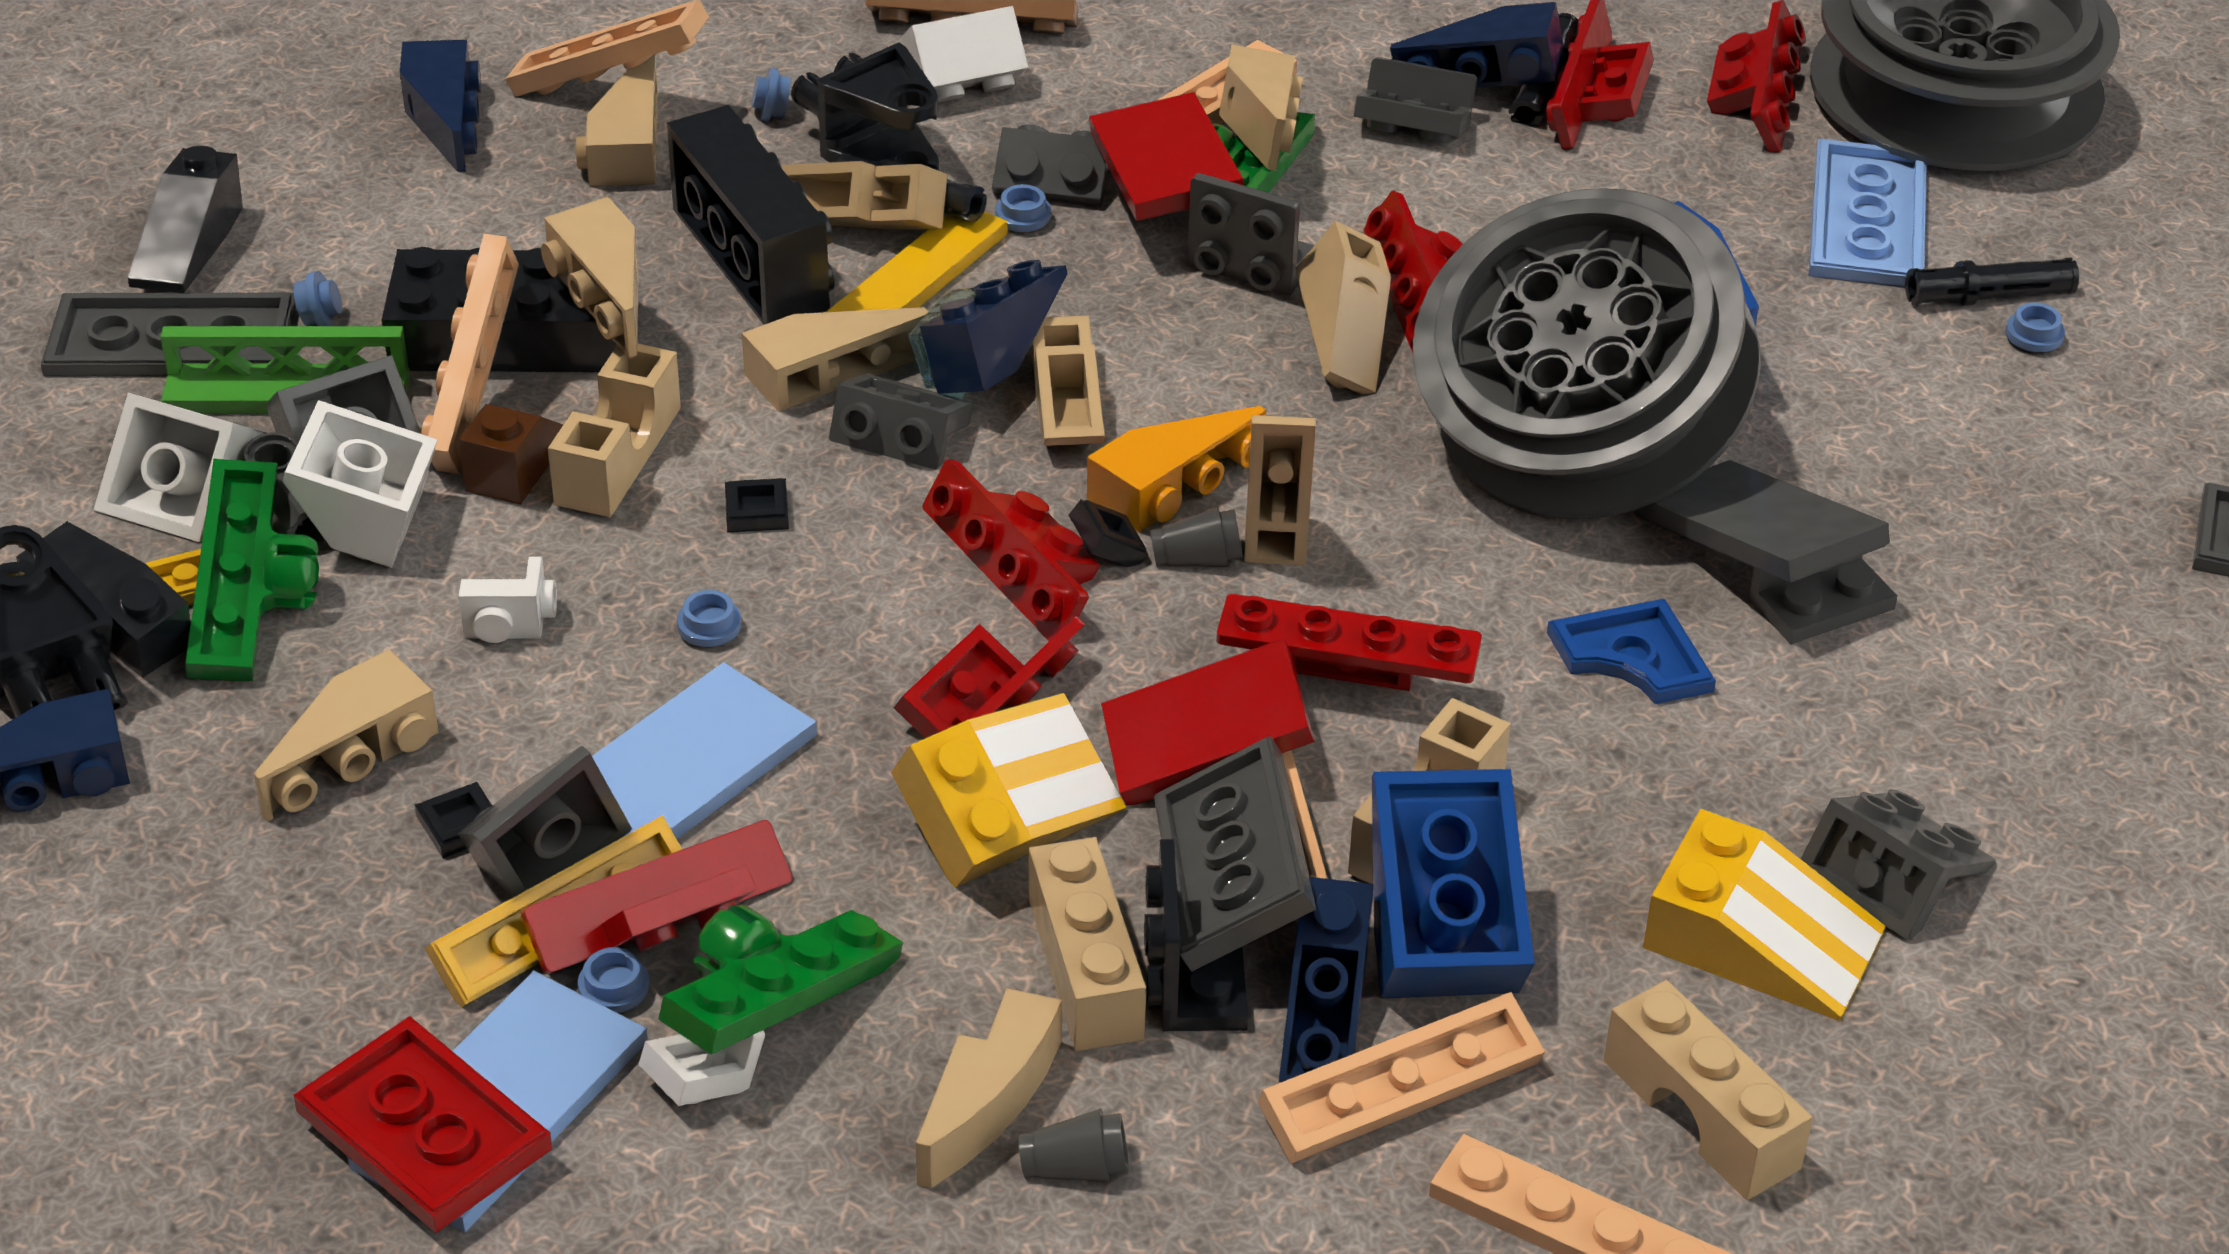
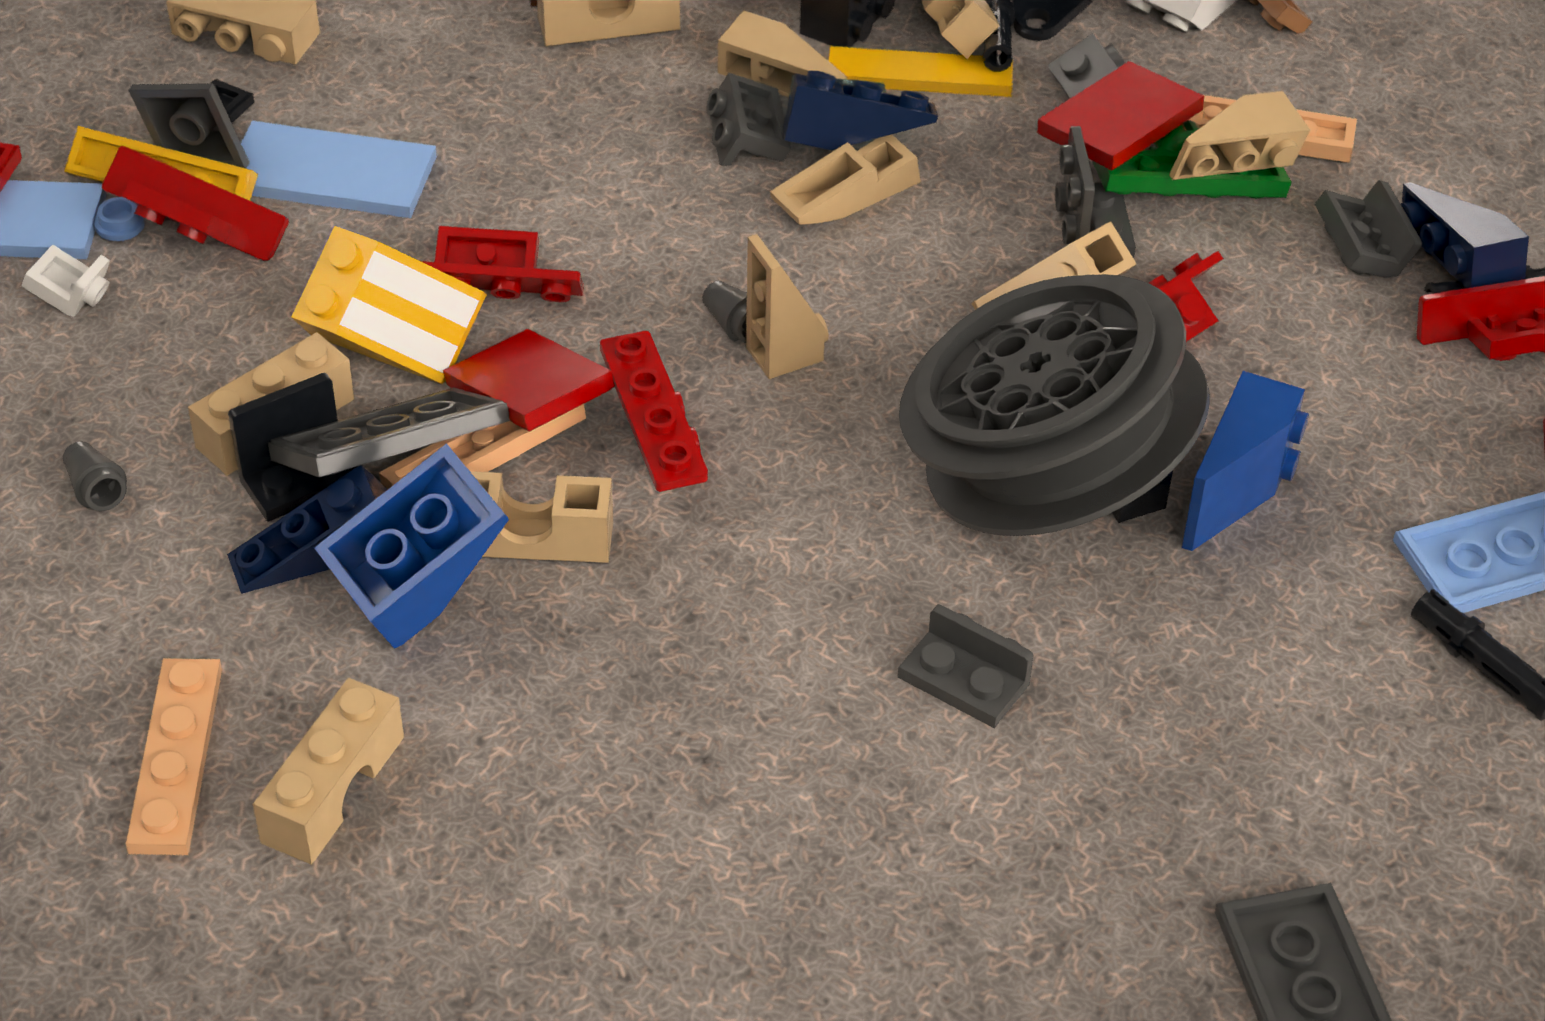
camera: 60 degrees right, 5 degrees up
(507, 607) = (414, 40): white bracket -> none
(708, 619) = (475, 124): medium blue plate -> none
(756, 505) = (608, 100): black tile -> none
(771, 975) = (141, 272): green plate -> none
(988, 1084) = (114, 409): tan slope -> none
(1015, 546) = (664, 232): red bracket -> none
(1024, 208) = (1036, 89): medium blue plate -> none
(1108, 533) = (702, 263): black tile -> none
(1146, 465) = (815, 260): light orange slope -> none
(1400, 1077) = (253, 608): light nougat plate -> none
(1635, 644) = (813, 586): blue tile -> none
(1760, 917) = (541, 749): yellow slope -> none
(1767, 522) = (988, 594): dark grey tile -> none
(1891, 856) = (682, 807): dark grey bracket -> none
(2036, 328) = (1448, 704): medium blue plate -> none

